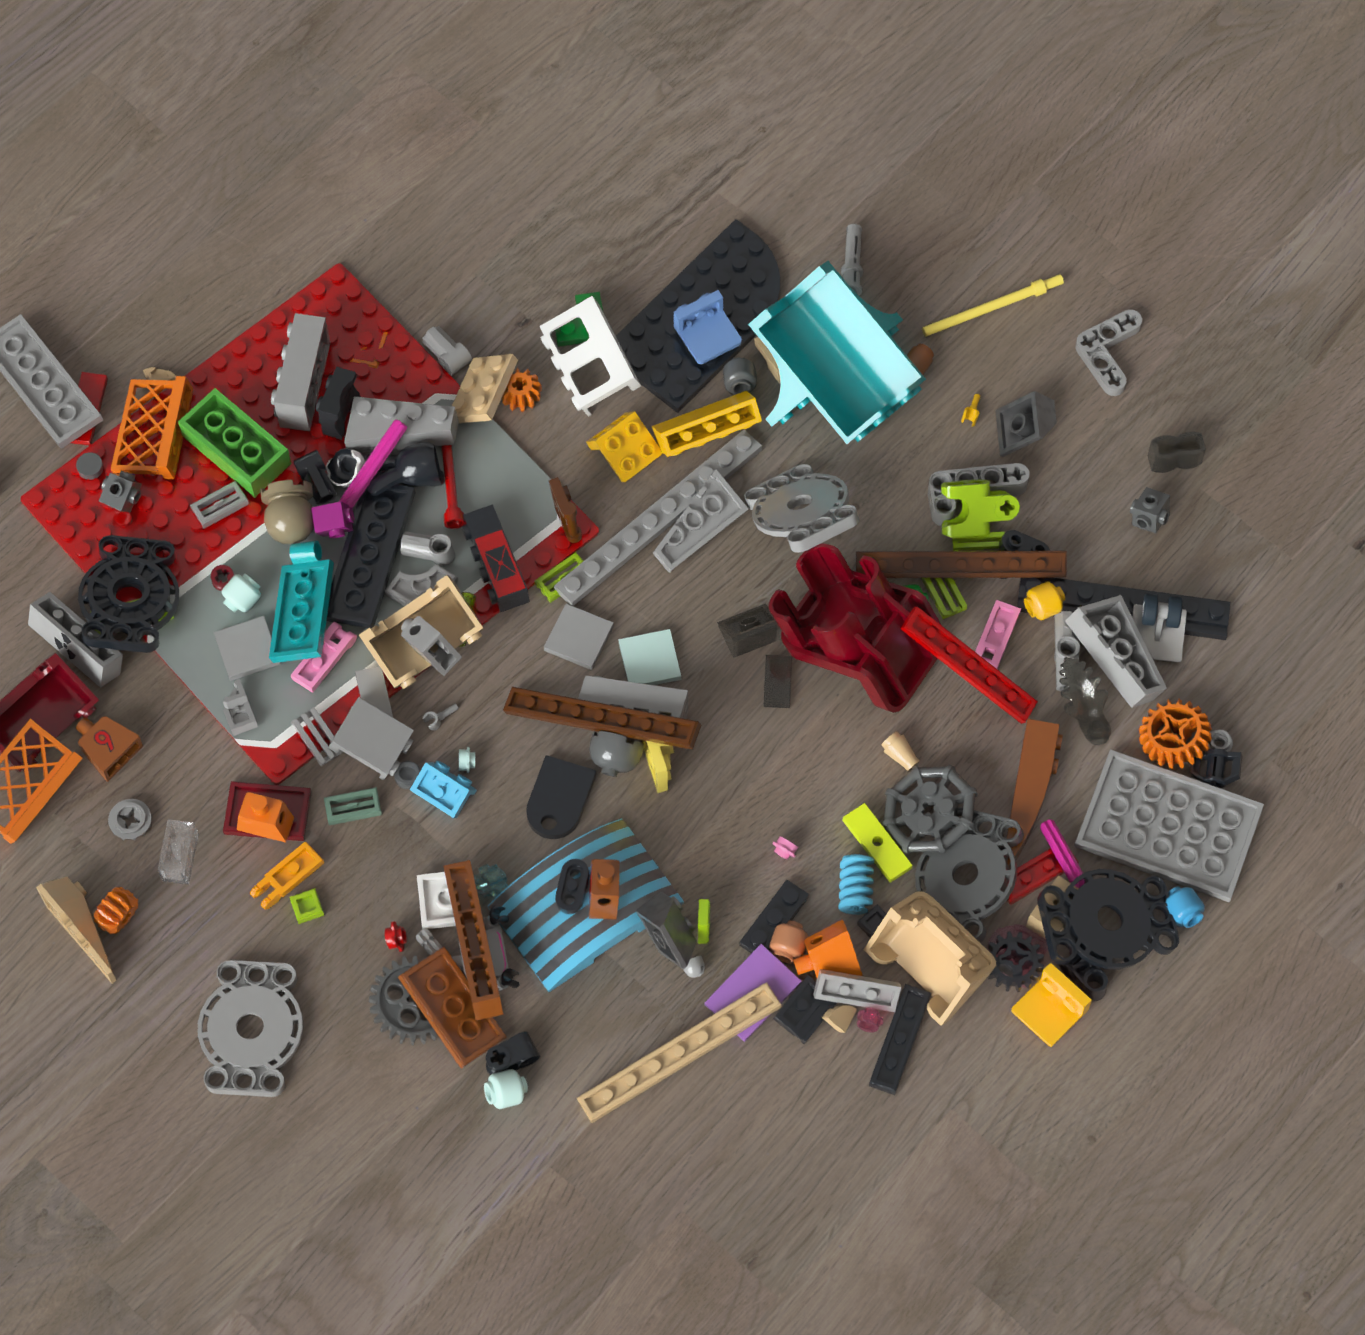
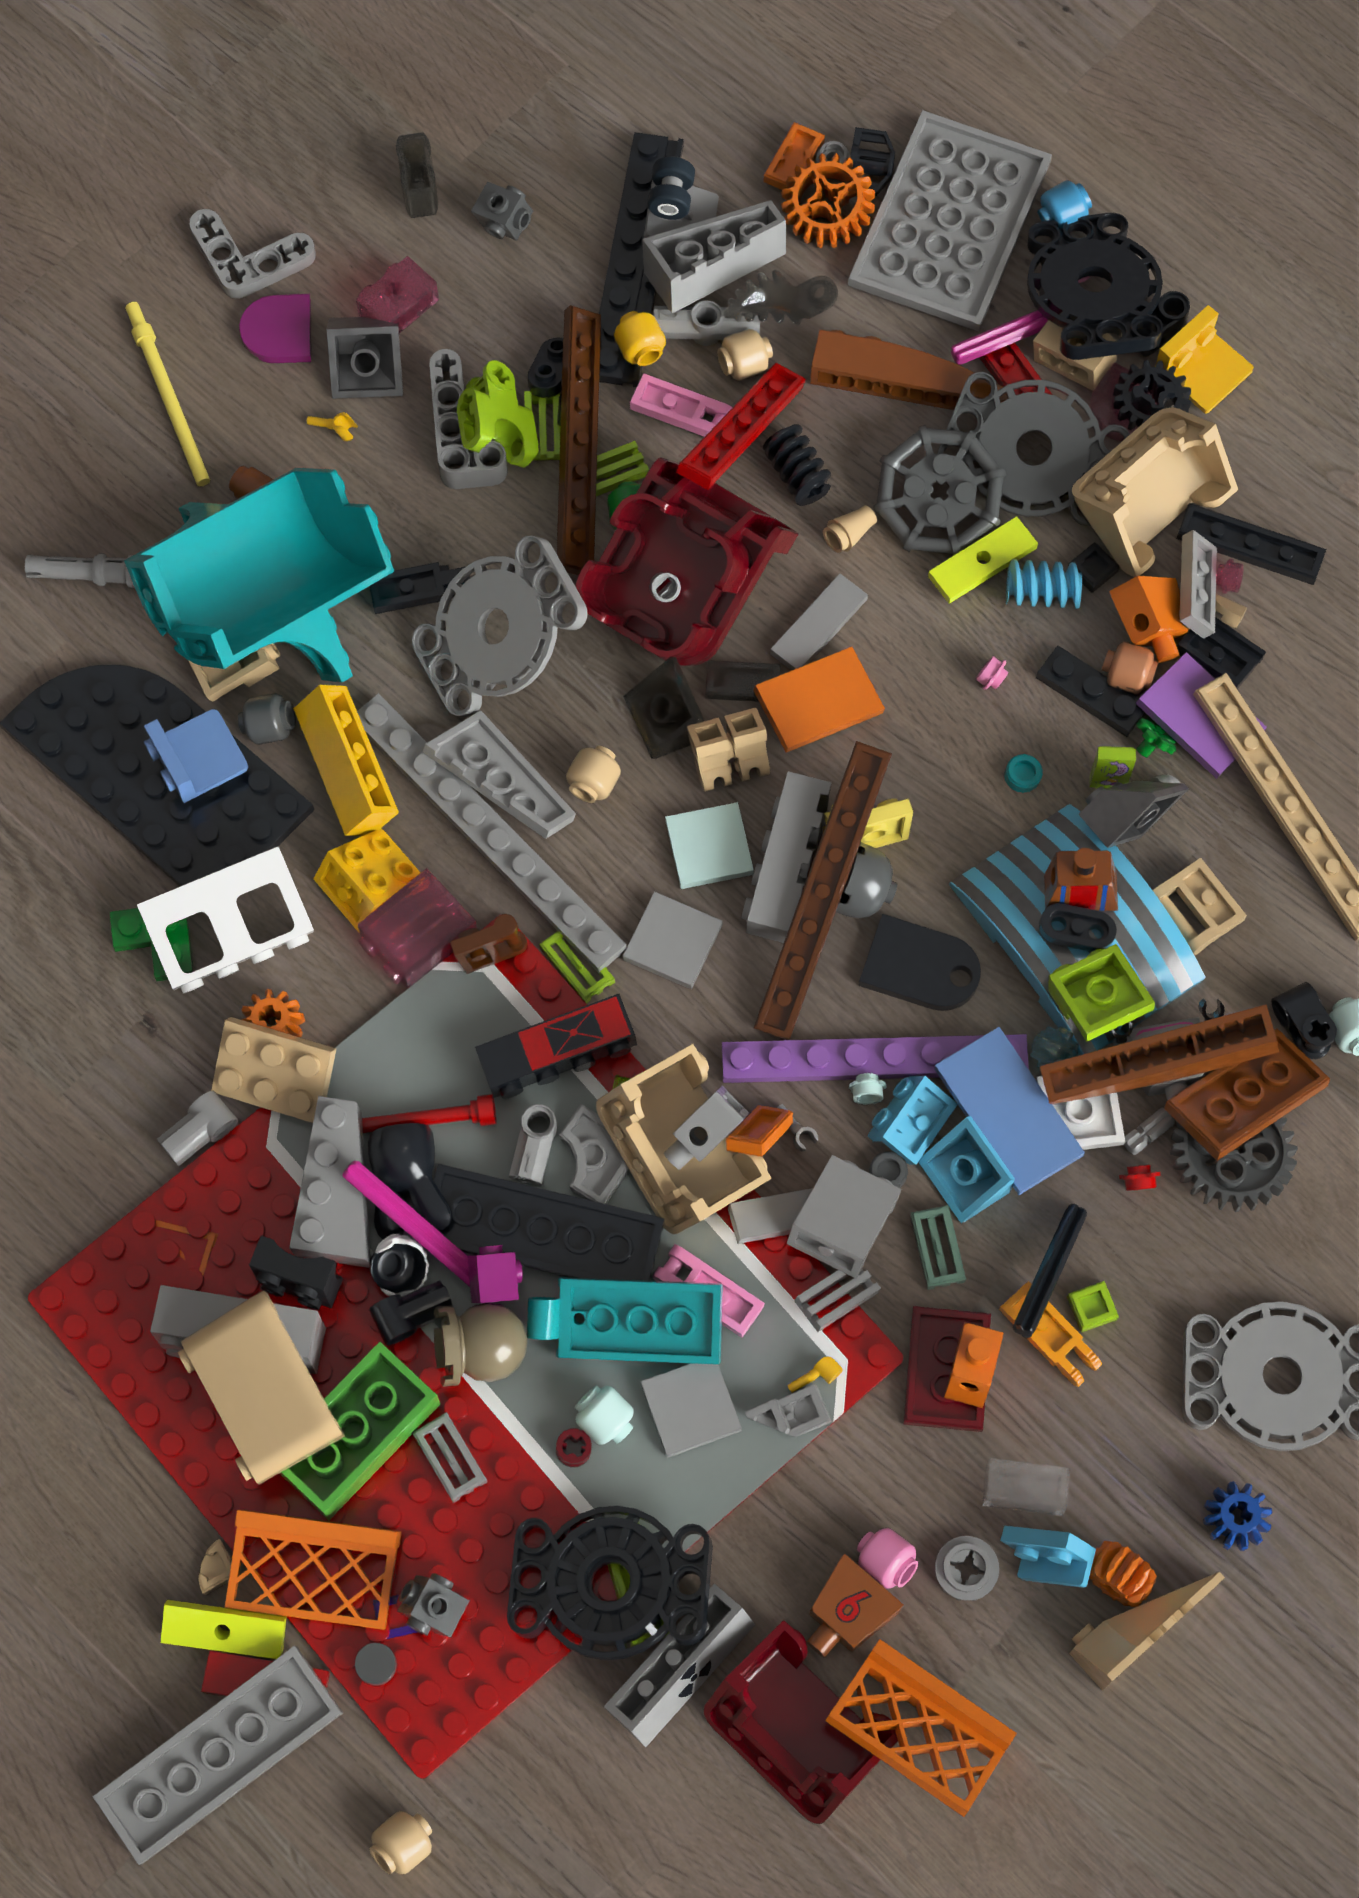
camera: 90 degrees left, 5 degrees up
(118, 380) = (200, 1628): none -> neon yellow tile
(130, 864) = (1050, 1556): none -> medium azure bracket
(137, 767) = (887, 1558): none -> bright pink head
(155, 999) = (1249, 1528): none -> blue gear
(250, 372) = (260, 1388): none -> tan windscreen
(267, 732) = (825, 1367): none -> yellow hand
(328, 872) = (1049, 1270): none -> black axle
(405, 824) = (967, 1170): none -> medium azure slope
(432, 684) = (759, 1130): none -> orange tile
(451, 839) = (1009, 1109): none -> medium blue tile
(490, 767) = (844, 1058): none -> medium lavender plate
(520, 897) = (1100, 992): none -> lime plate
(586, 472) = (414, 929): none -> clear pink brick
(605, 991) = (1205, 899): none -> tan plate
(699, 580) = (593, 774): none -> tan head
(708, 870) = (1023, 773): none -> teal tile
(716, 664) = (743, 741): none -> tan legs
(733, 957) = (1154, 738): none -> green plant
(761, 729) = (818, 699): none -> orange tile
(824, 732) = (819, 623): none -> light grey tile
(830, 616) = (668, 592): none -> light grey hinge
(844, 465) = (412, 587): none -> black hinge
(948, 712) = (797, 465): none -> black piece
(1039, 676) = (744, 354): none -> tan head
(1049, 372) = (278, 328): none -> magenta tile
(1075, 445) = (399, 295): none -> clear pink brick
(1220, 714) = (794, 151): none -> orange plate

